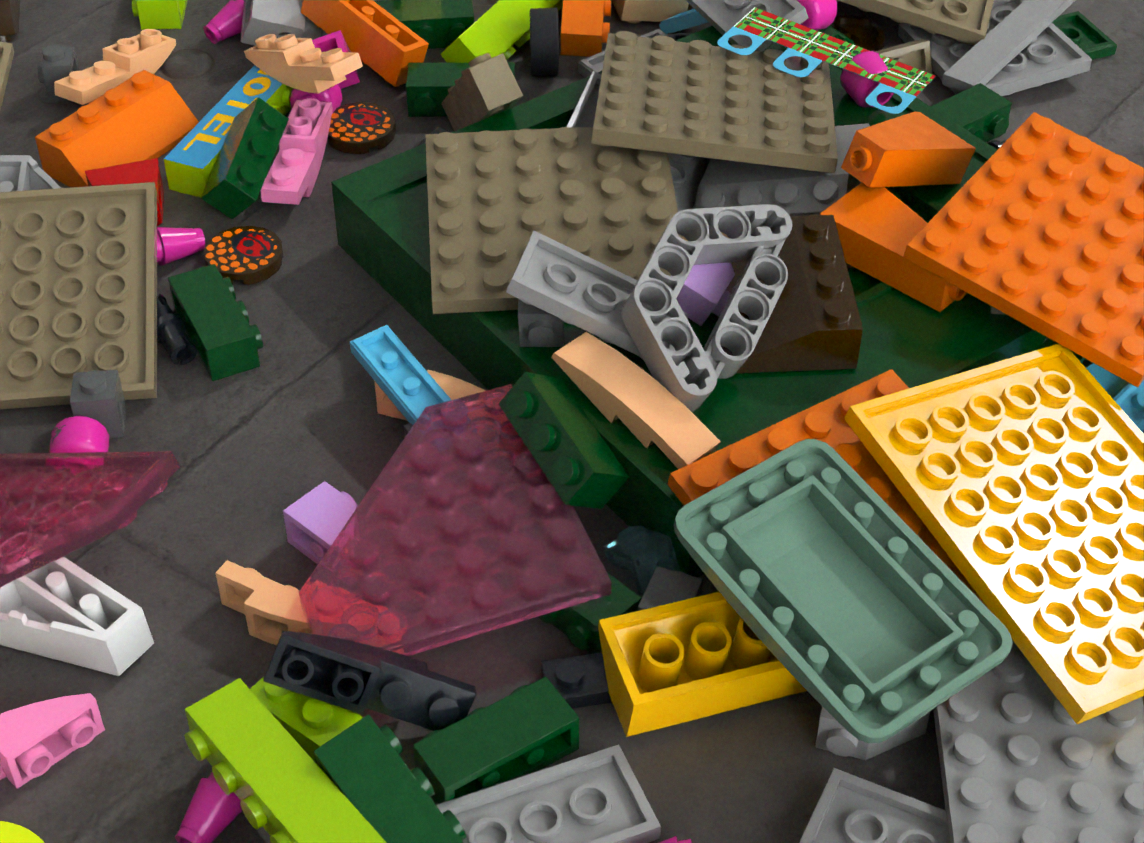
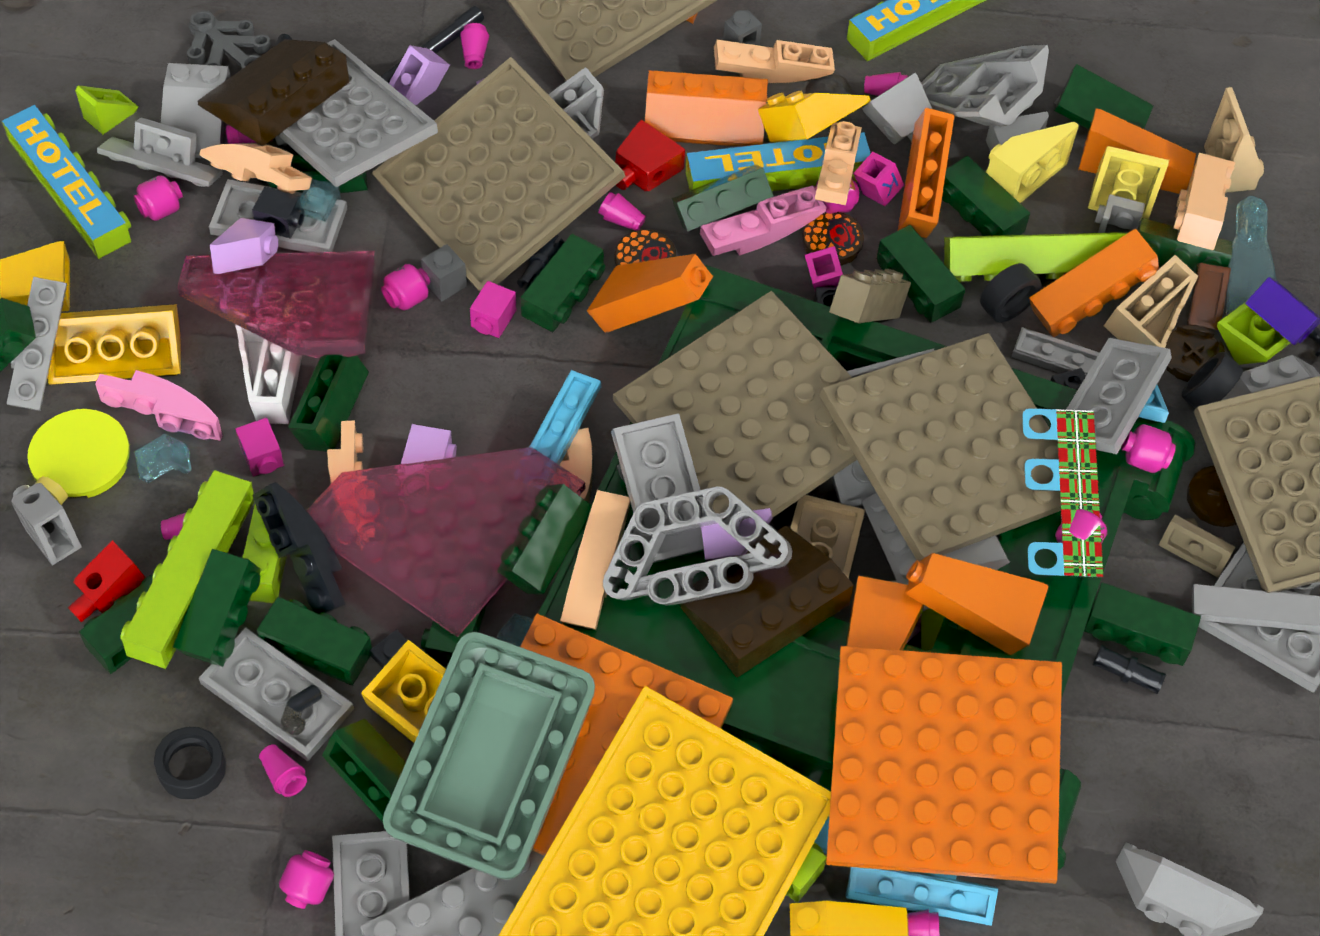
camera: 55 degrees right, 15 degrees up
(77, 797) = (161, 457): none -> clear light blue bracket
(165, 680) = (259, 447): none -> dark pink brick
(171, 578) = (328, 401): none -> dark green brick
(189, 388) = (493, 309): none -> dark pink brick
(214, 64) = (804, 115): none -> yellow slope
(309, 242) = (648, 289): none -> orange slope
(400, 131) = (824, 267): none -> dark pink brick
(589, 792) = (291, 717): none -> arm
(741, 759) = (365, 763): none -> dark green brick

